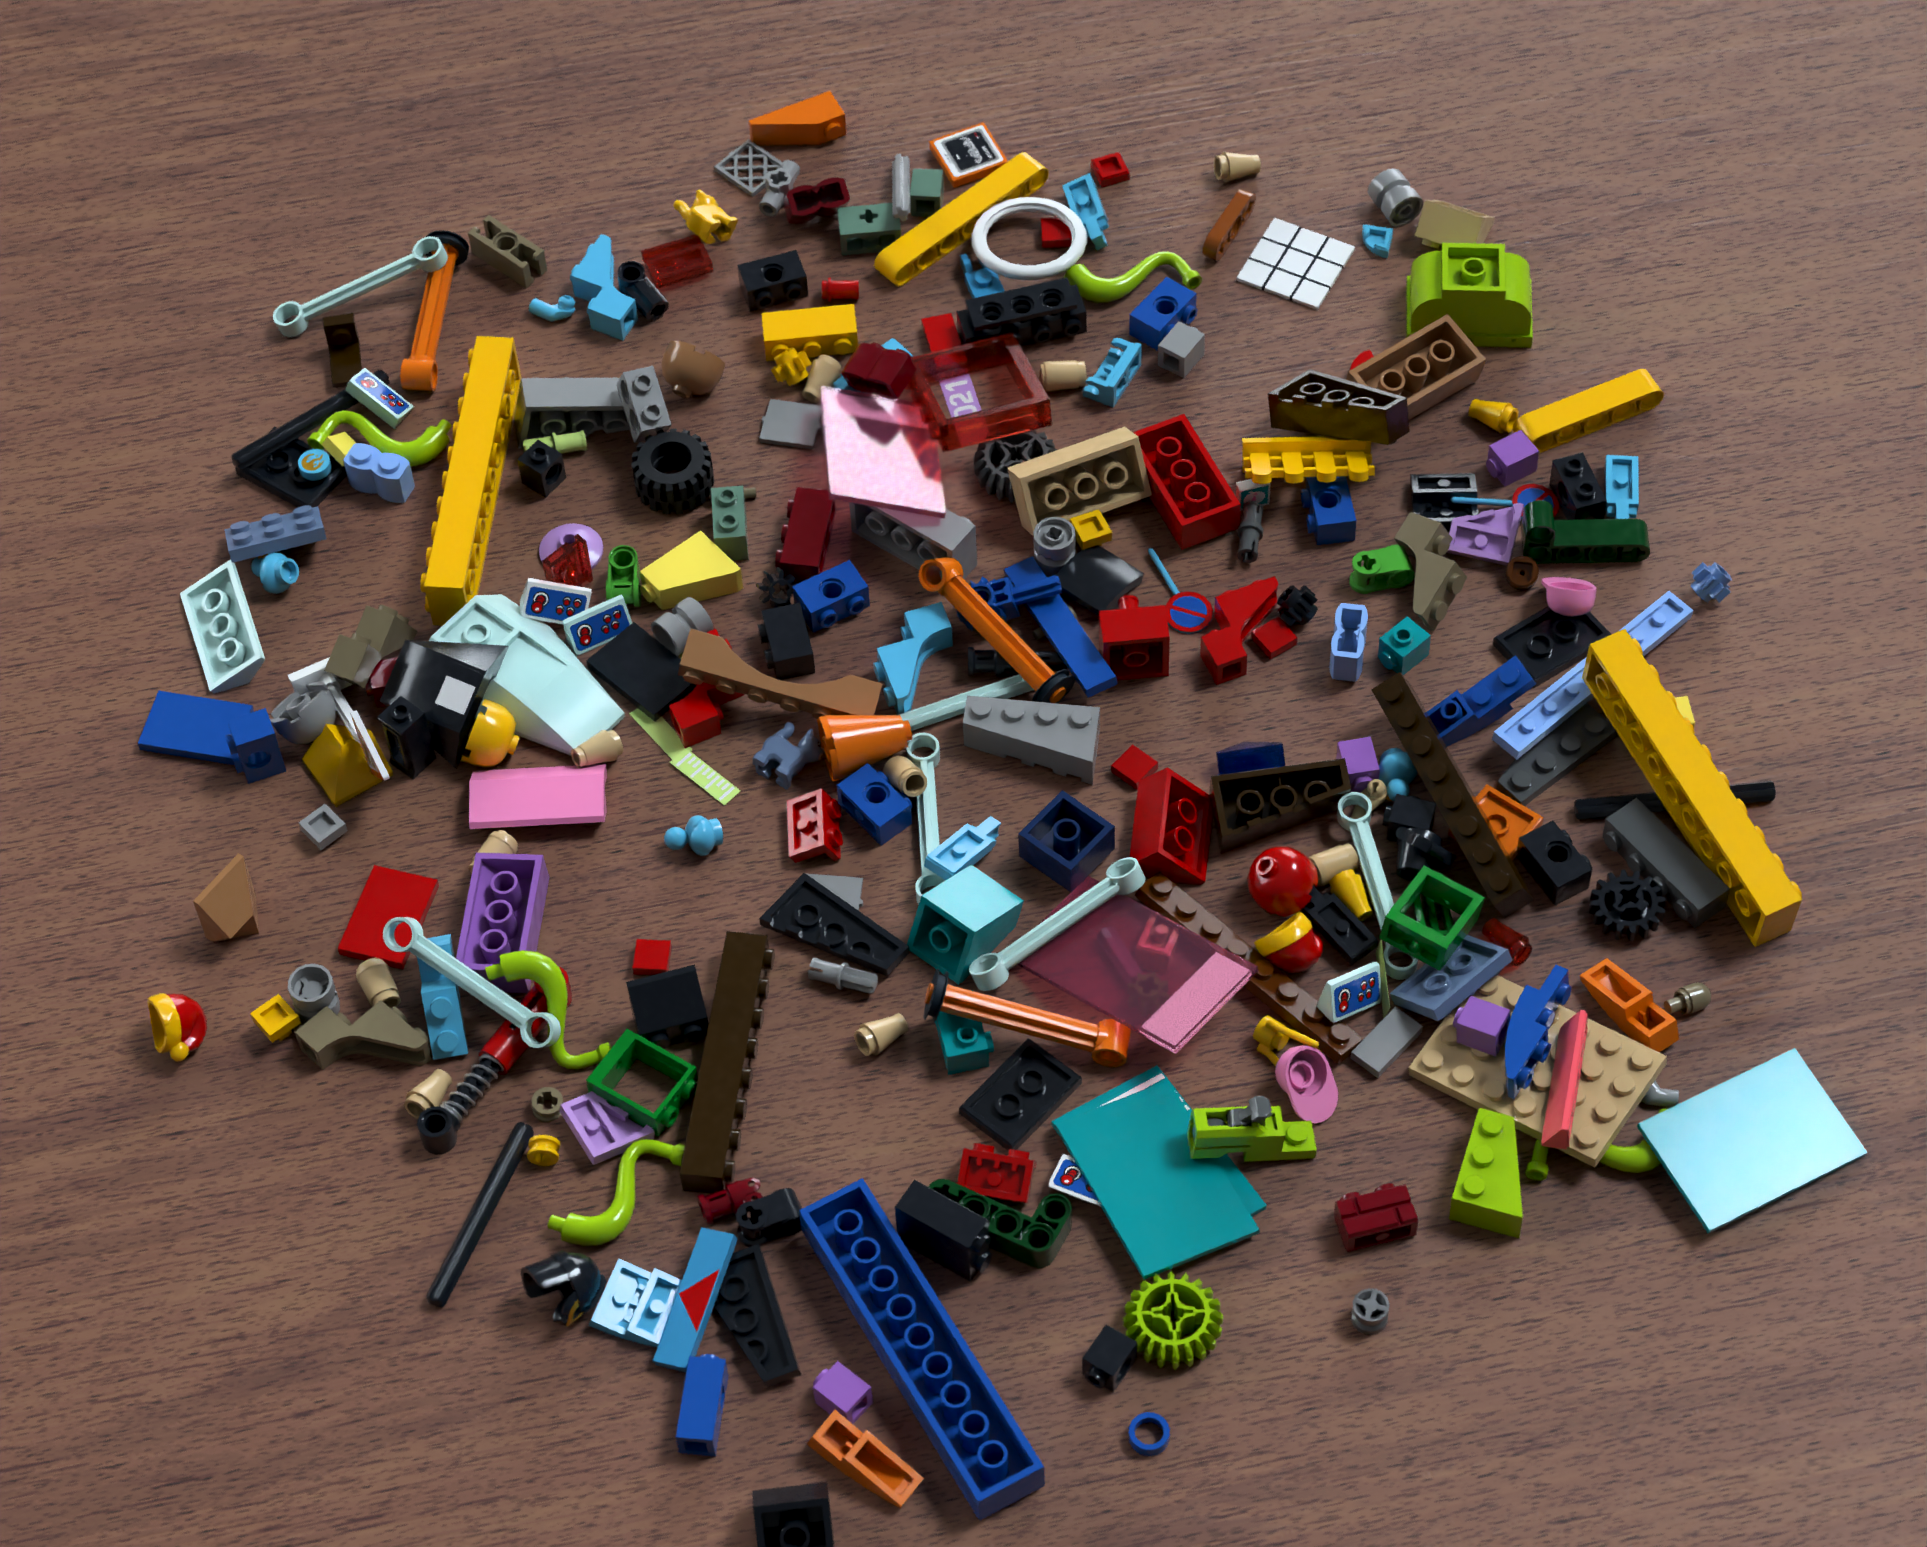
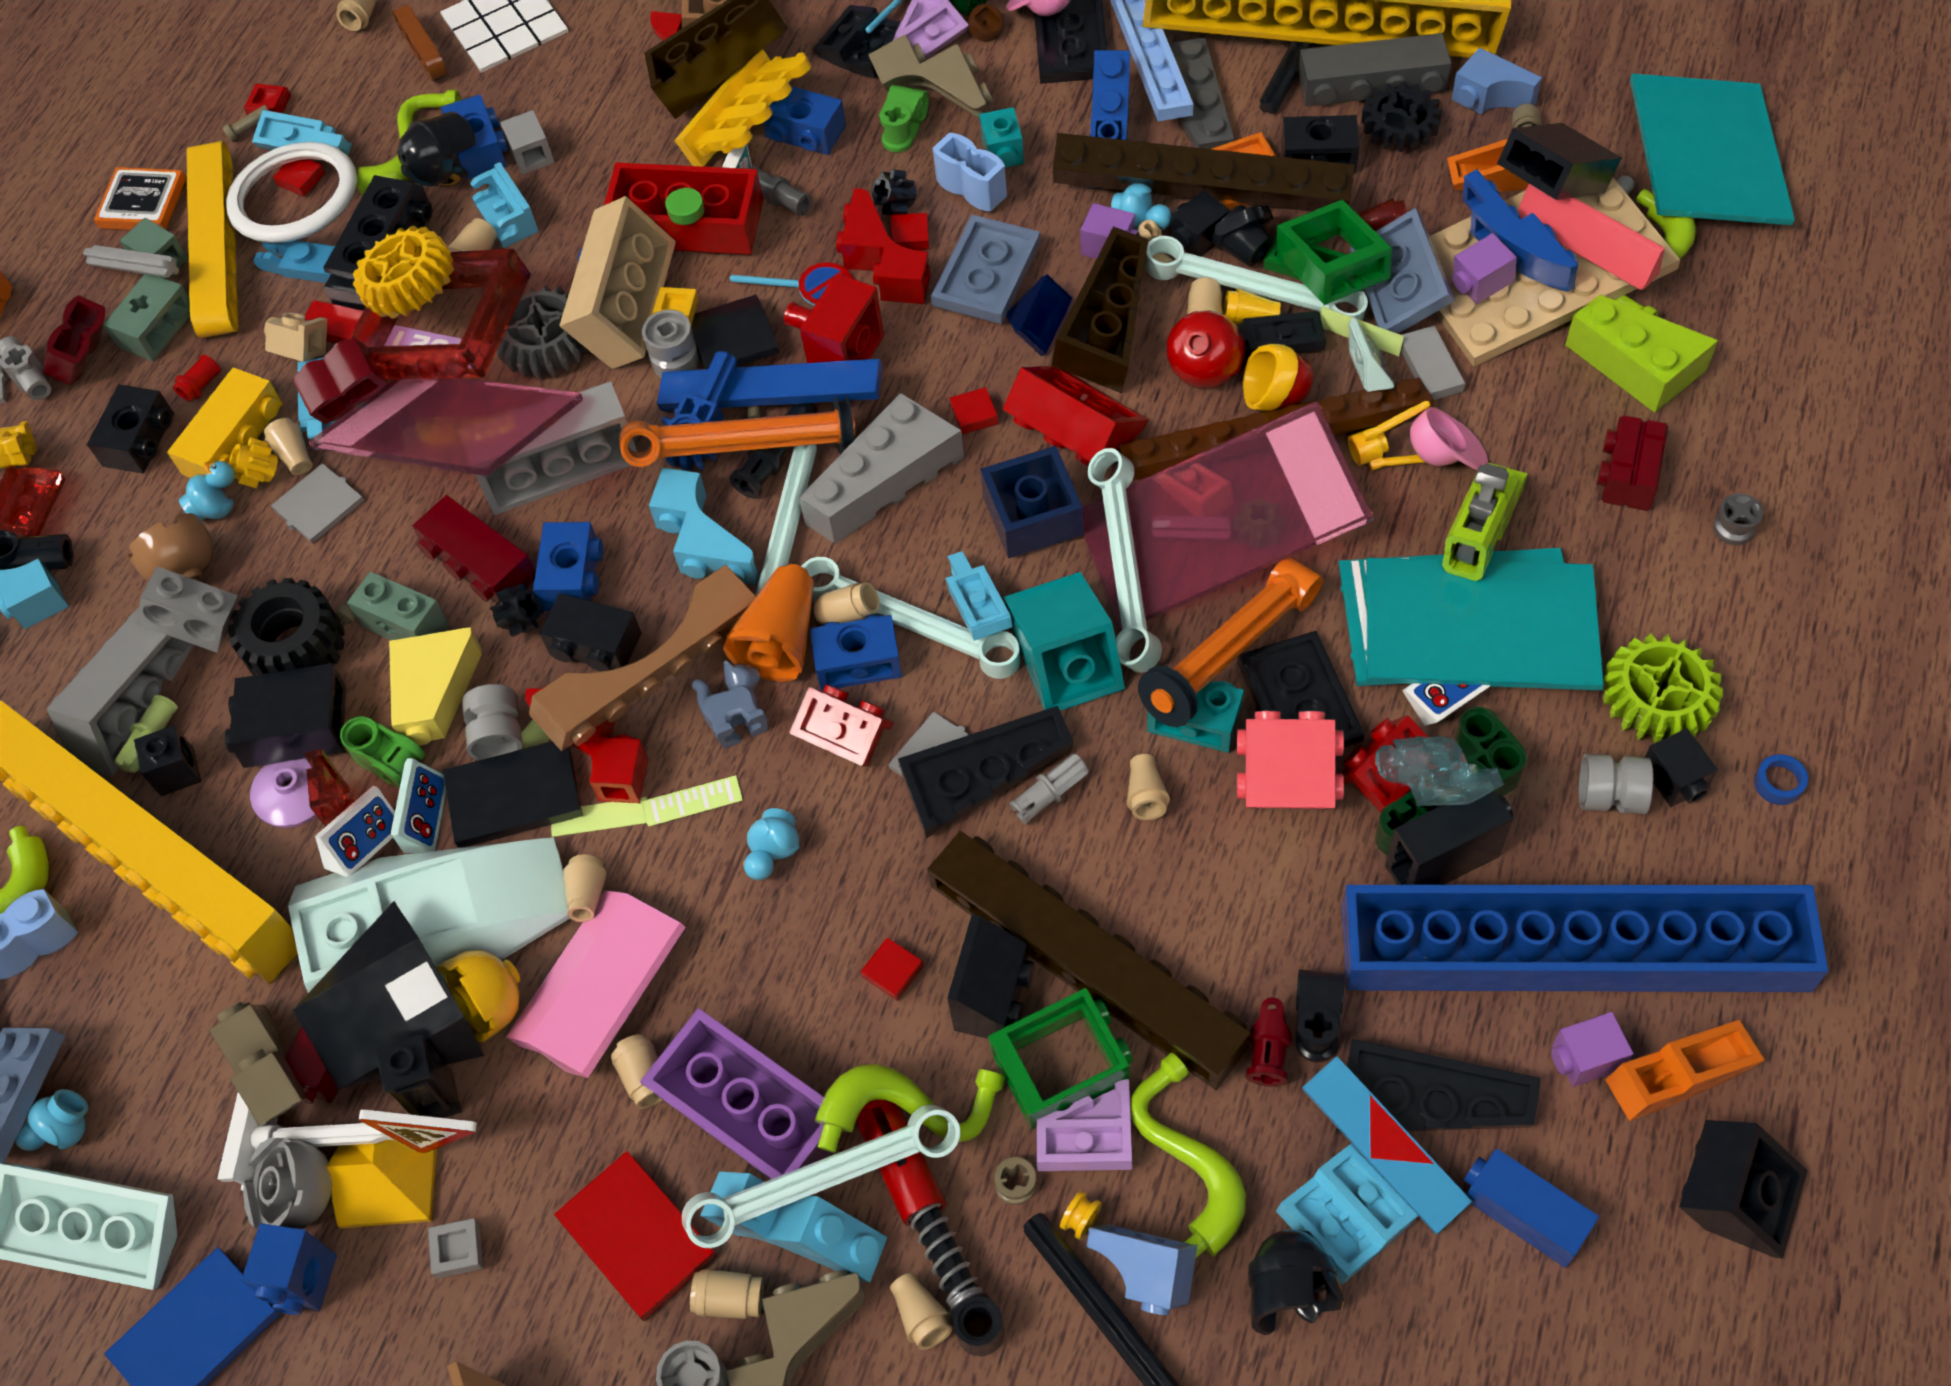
camera: 55 degrees left, 5 degrees up
(529, 1200) = (1152, 1266): none -> medium blue arch
(615, 510) = (286, 715): none -> black brick
(750, 357) = (205, 494): none -> medium azure animal
(910, 317) = (296, 337): none -> tan brick
(946, 1105) = (1290, 761): none -> coral brick
(979, 1186) = (1435, 771): none -> clear light blue plate
(988, 348) = (403, 272): none -> yellow gear
(1066, 167) = (232, 131): none -> dark tan piece
(1067, 1323) = (1619, 784): none -> light grey wheel
(1121, 294) = (429, 148): none -> black helmet
(1168, 479) = (684, 206): none -> bright green tile
(1270, 704) = (986, 269): none -> sand blue plate
(1609, 1019) = (1559, 160): none -> black brick
(1710, 951) = (1494, 82): none -> medium blue arch

